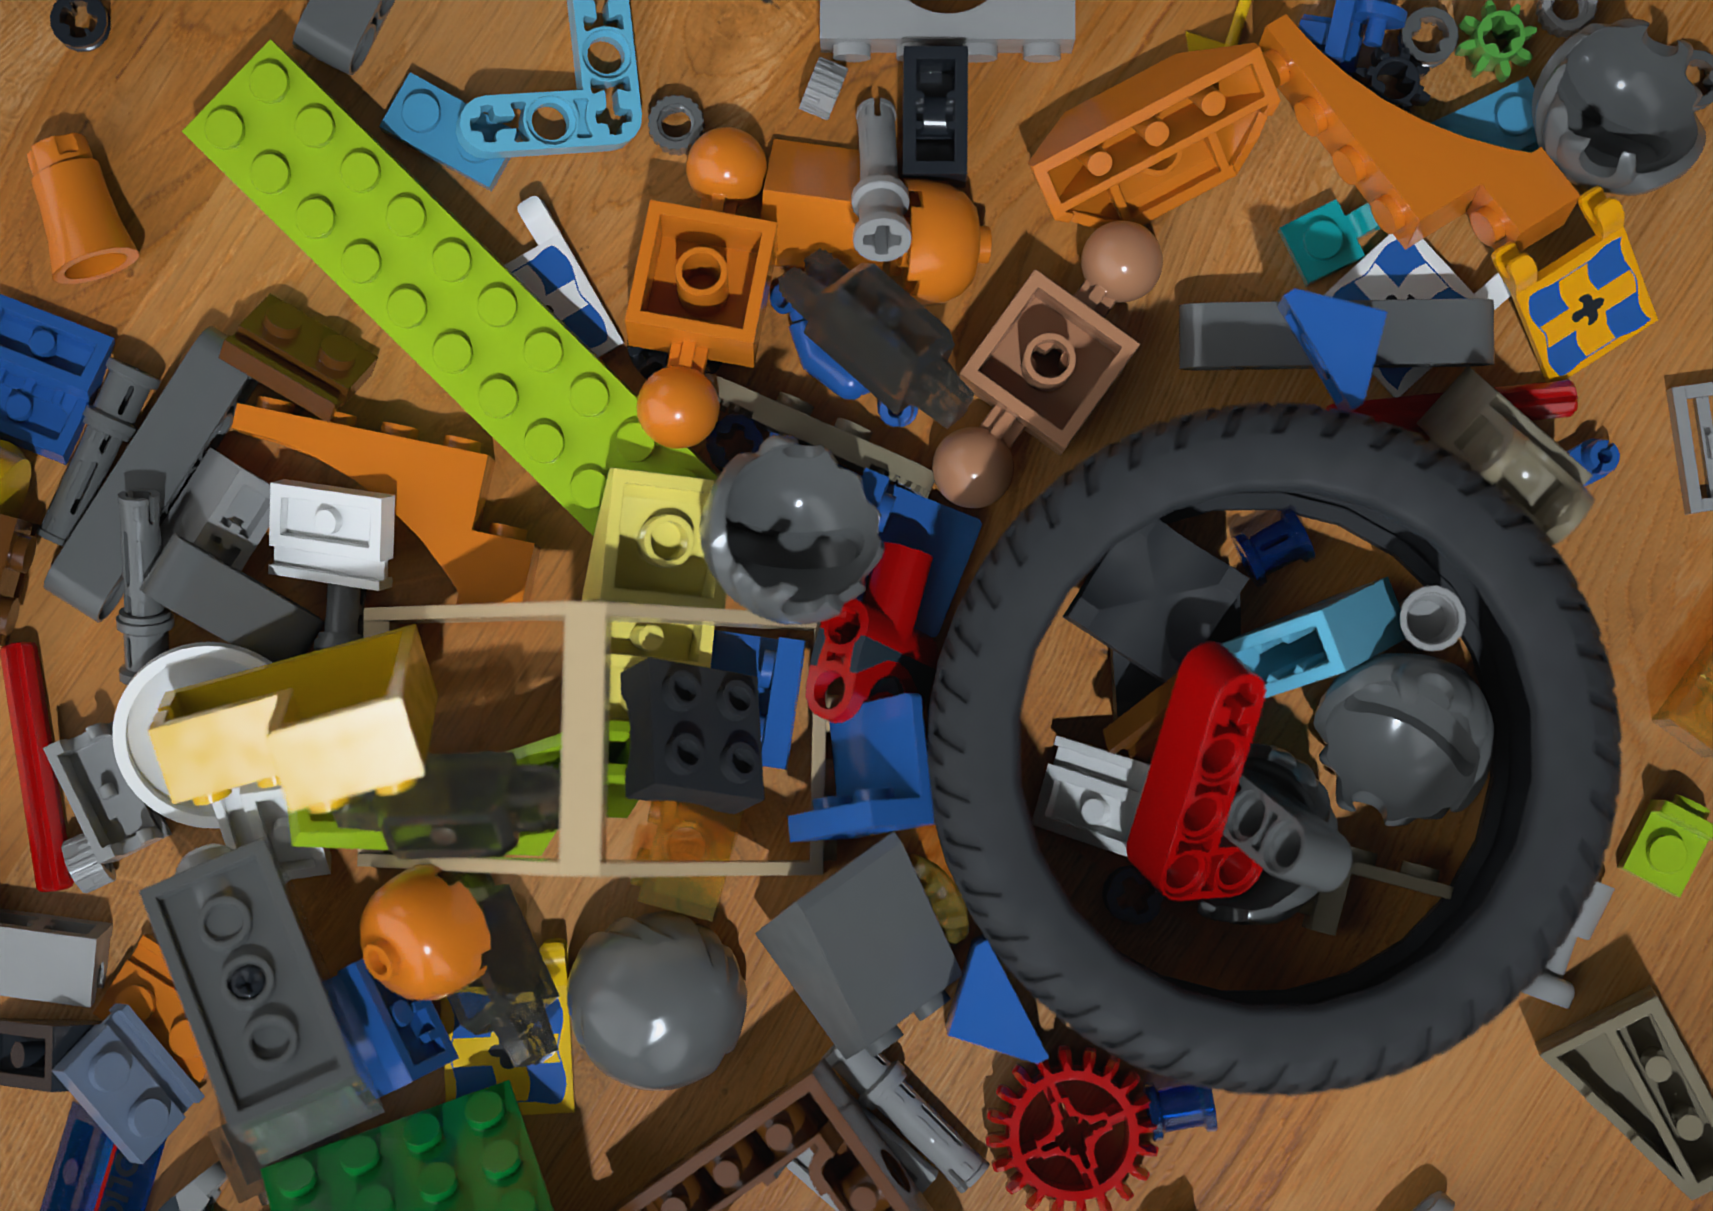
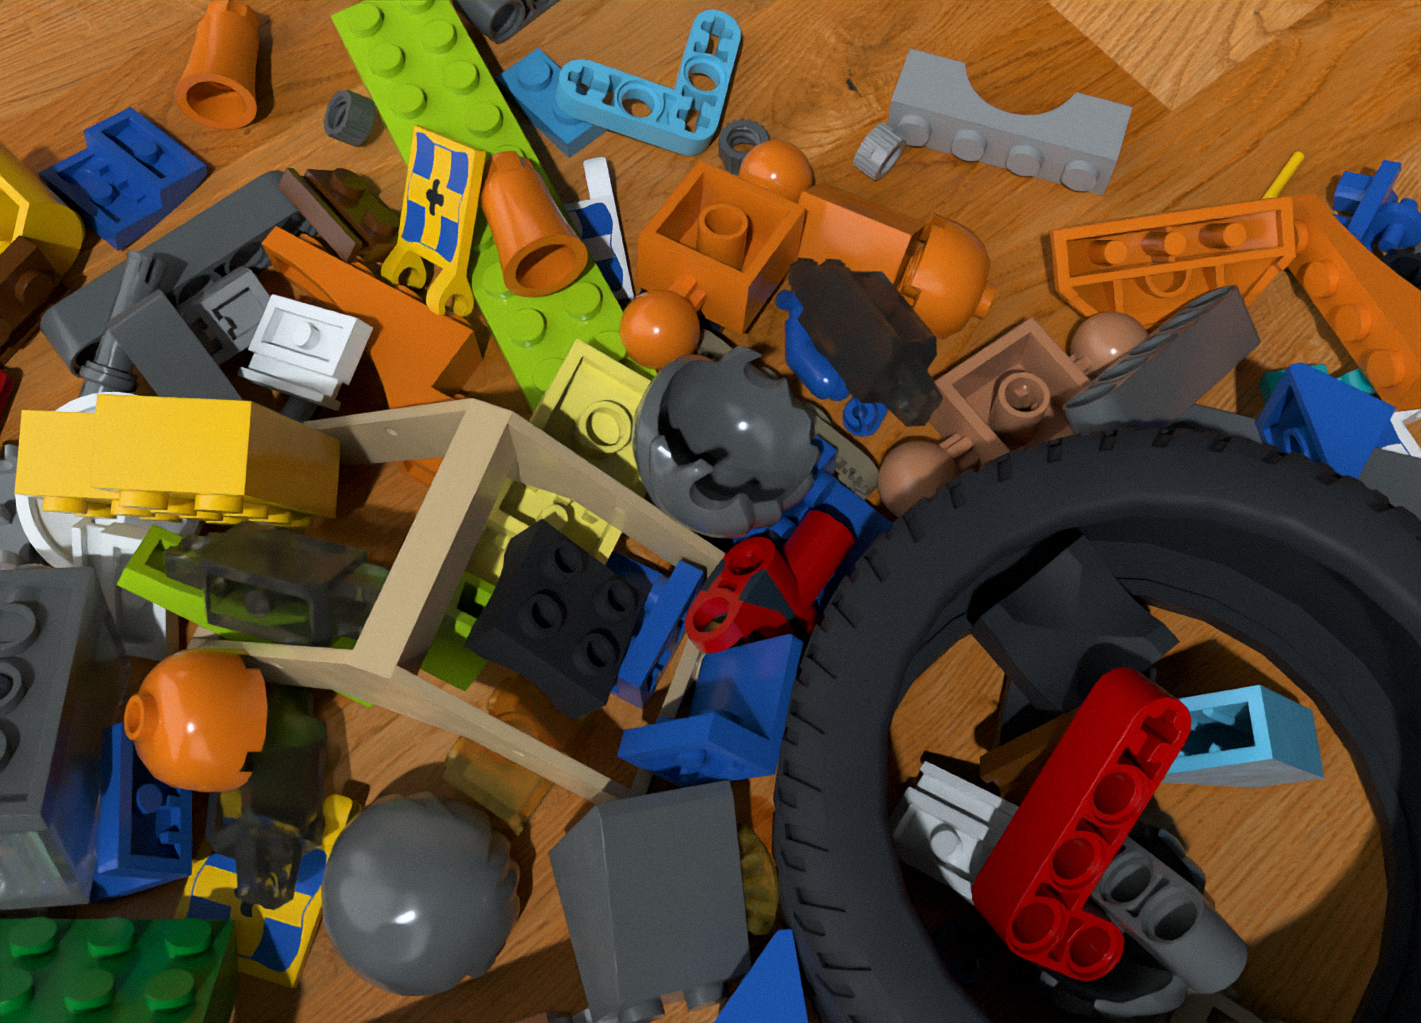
camera: 15 degrees right, 20 degrees down
(109, 424) = (162, 217): dark grey pin -> none
(243, 232) = (349, 117): none -> dark grey axle
(410, 349) = (438, 218): none -> yellow flag
(509, 346) = (530, 233): none -> orange plant
(880, 195) = (905, 218): light grey pin -> none
(935, 113) = (976, 174): black brick -> none
(1178, 292) = (1169, 367): none -> dark grey beam
(1274, 547) = (1202, 650): clear blue bush -> none
(1406, 736) = (1311, 872): dark grey piece -> none
(1431, 619) = (1360, 751): light grey piece -> none

